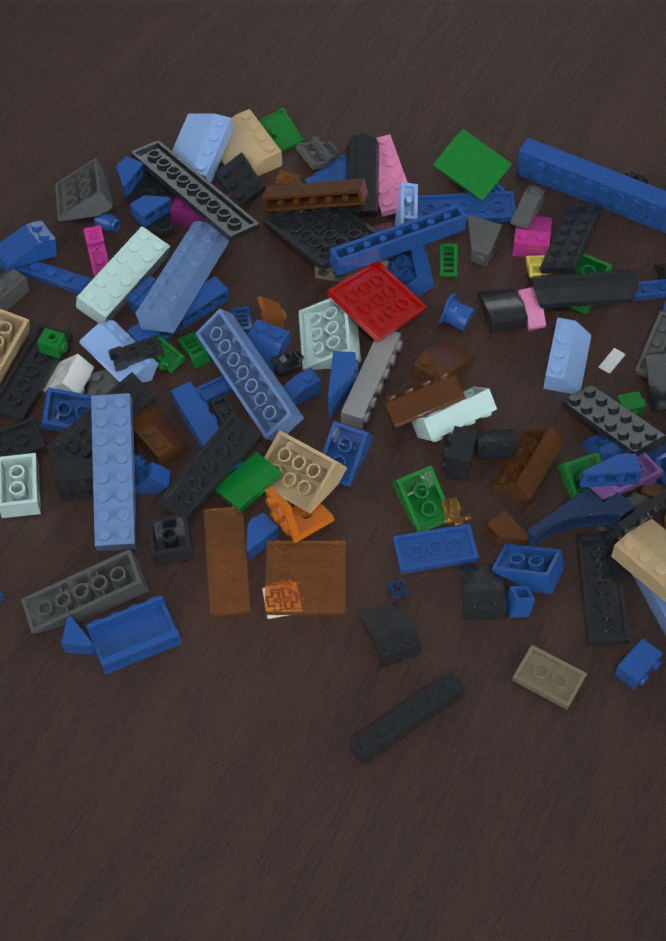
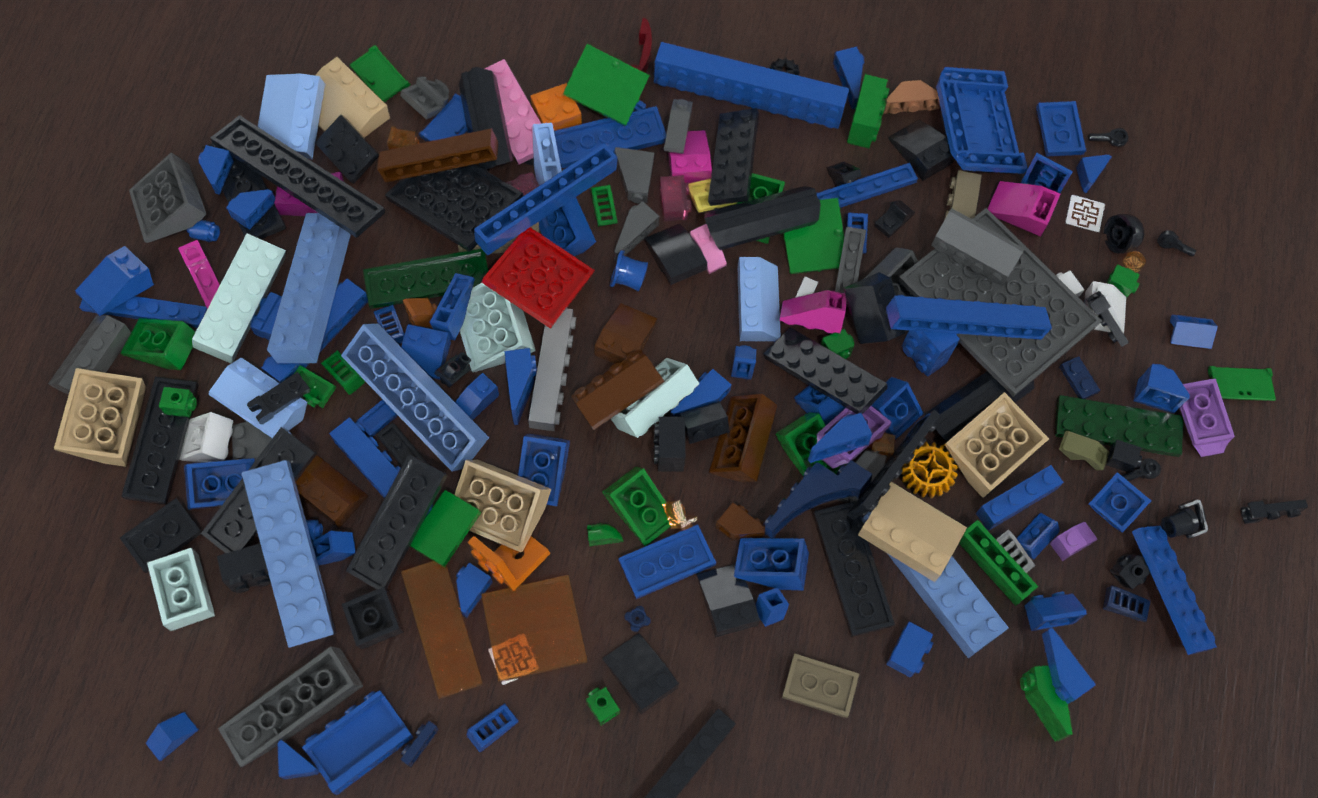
camera: 20 degrees left, 10 degrees up
(50, 299) = (160, 343): none -> green slope
(180, 650) = (414, 750): none -> dark blue plate
(237, 646) = (489, 739): none -> blue slope
(286, 289) = (421, 277): none -> dark green plate
(299, 313) = (453, 306): none -> blue slope
(350, 651) = (602, 705): none -> green brick
(384, 517) = (603, 534): none -> green brick
(428, 178) = (556, 108): none -> orange brick
(475, 279) = (638, 225): none -> dark grey slope
(506, 417) = (711, 389): none -> blue slope
(511, 264) = (674, 198): none -> clear pink brick
(515, 139) = (644, 39): none -> dark red slope
(541, 403) = (743, 362): none -> blue slope
(620, 373) = (817, 310): none -> dark pink slope
(630, 322) = (817, 245): none -> green piece

